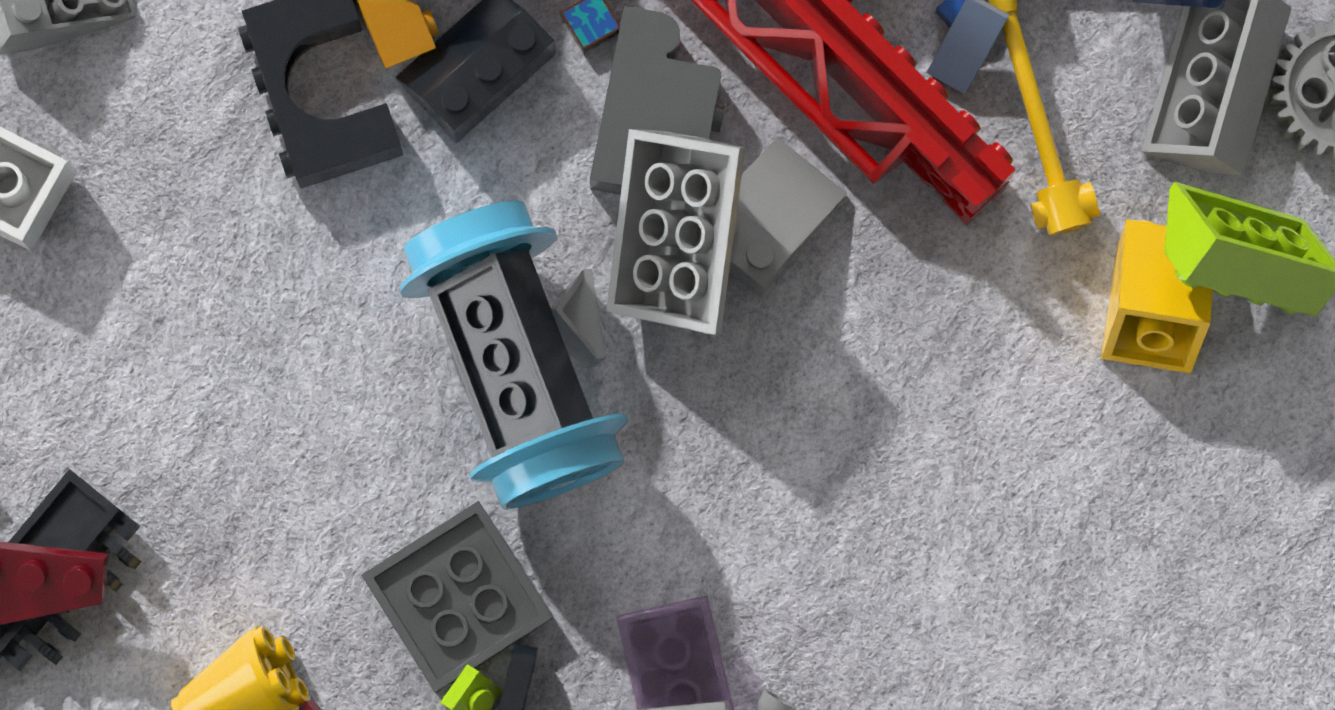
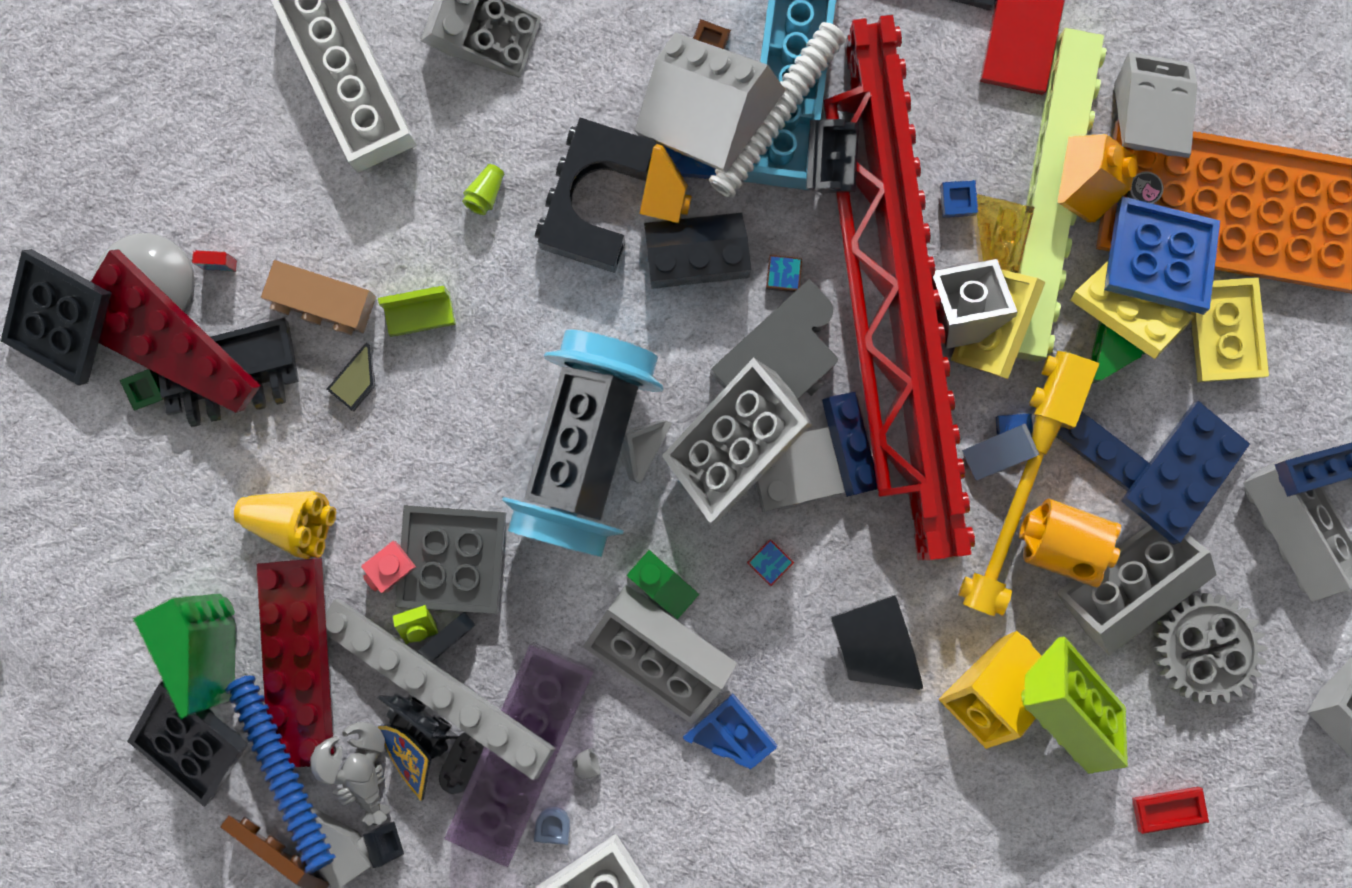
camera: 40 degrees right, 5 degrees up
(93, 419) = (318, 298): none -> medium nougat brick
(190, 168) = (483, 190): none -> lime cone
(201, 480) = (355, 379): none -> olive tile
(215, 353) = (418, 311): none -> lime panel
(394, 655) = (387, 568): none -> coral bracket
(710, 451) = (663, 584): none -> green slope
(764, 530) = (660, 654): none -> light grey slope
(801, 152) = (850, 443): none -> dark blue plate
(810, 344) = (770, 562): none -> tile
(907, 557) = (732, 733): none -> blue wing
(991, 346) = (877, 645): none -> black slope
(1111, 84) = (1070, 542): none -> light orange cylinder

